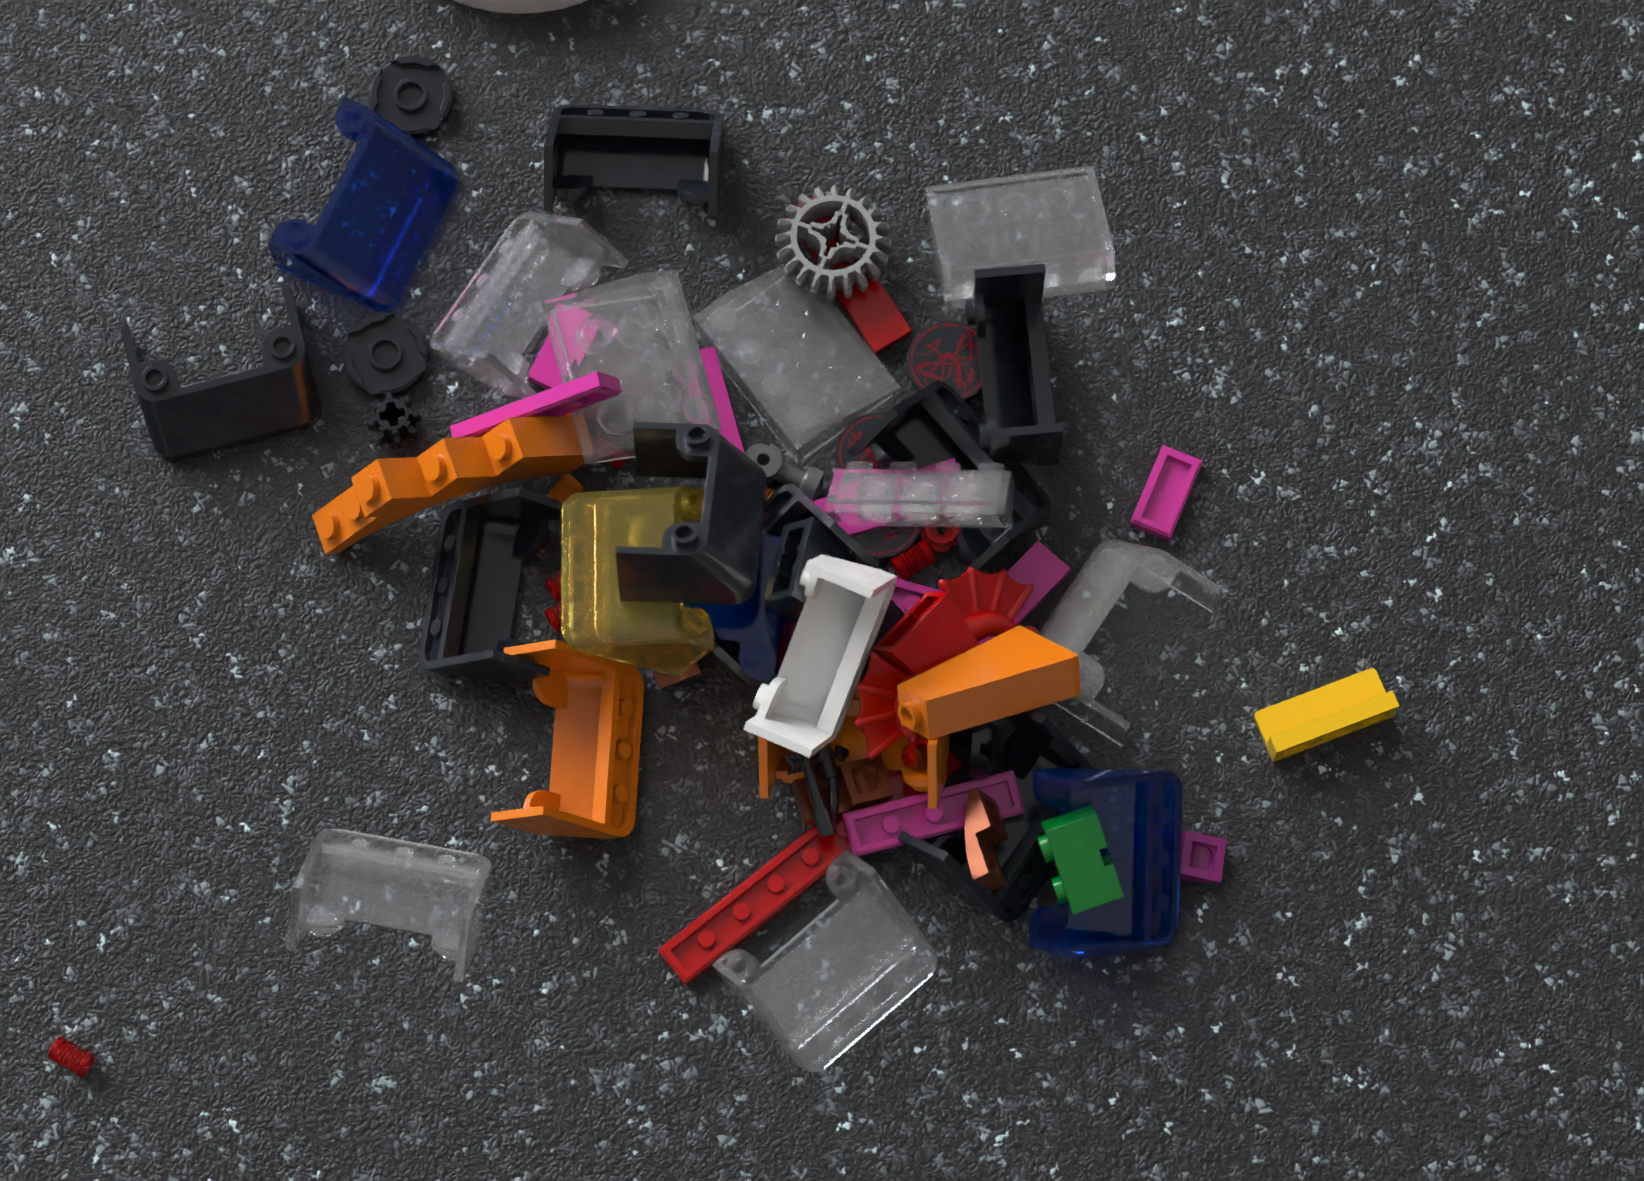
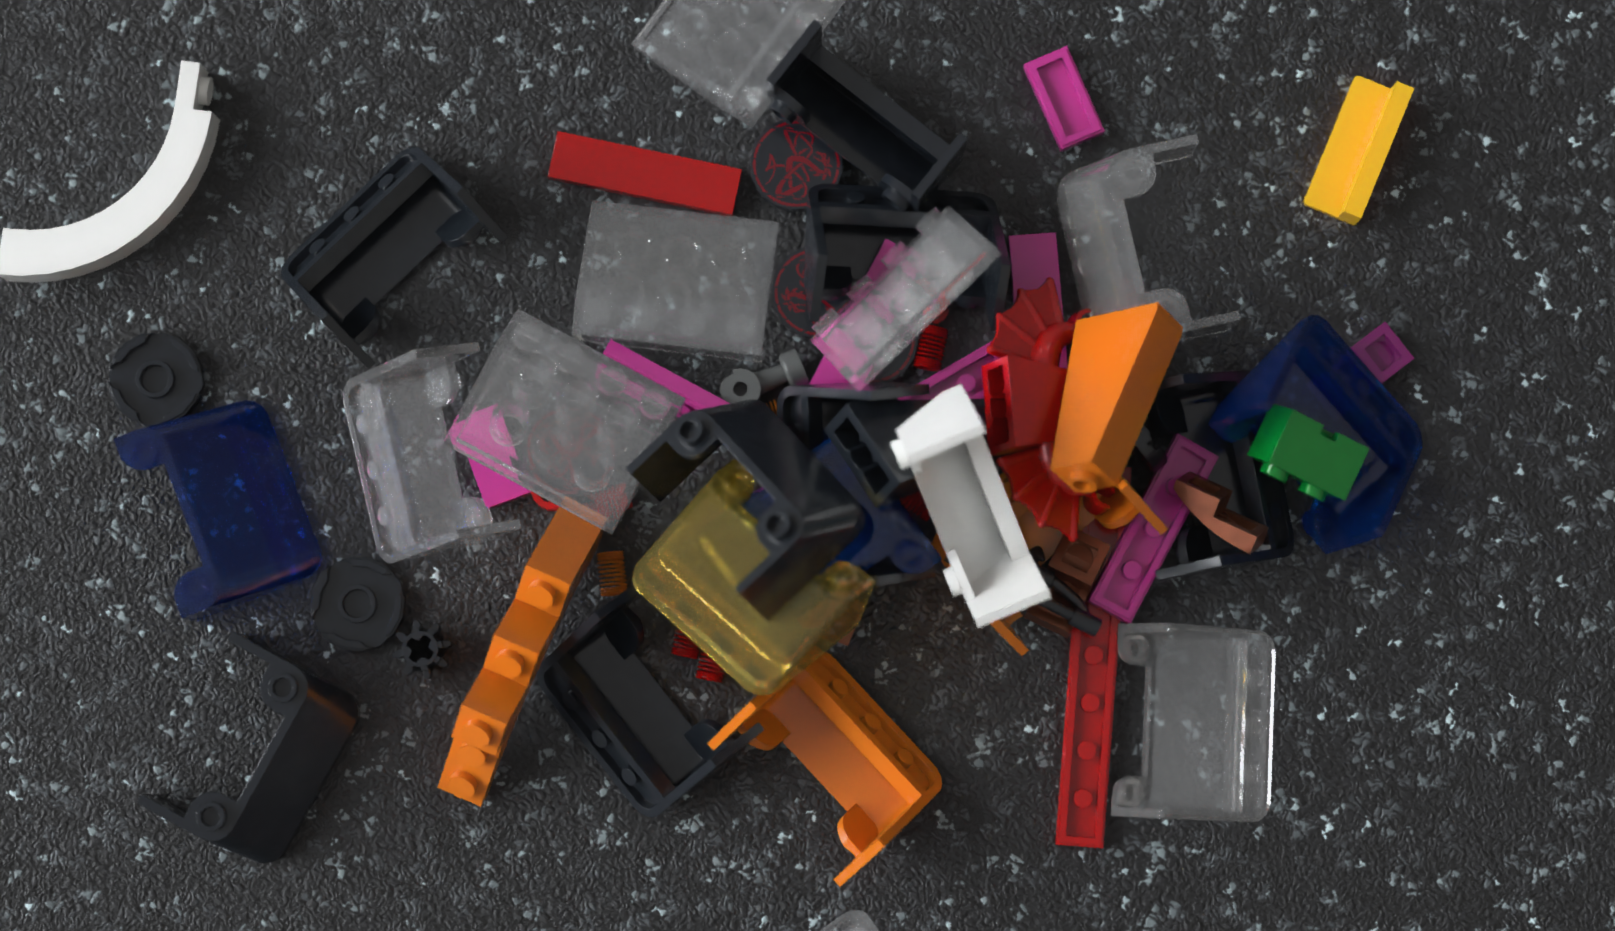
camera: 45 degrees left, 10 degrees up
(551, 402) = (531, 532): dark pink tile -> none
(849, 249) = (633, 152): light grey gear -> none

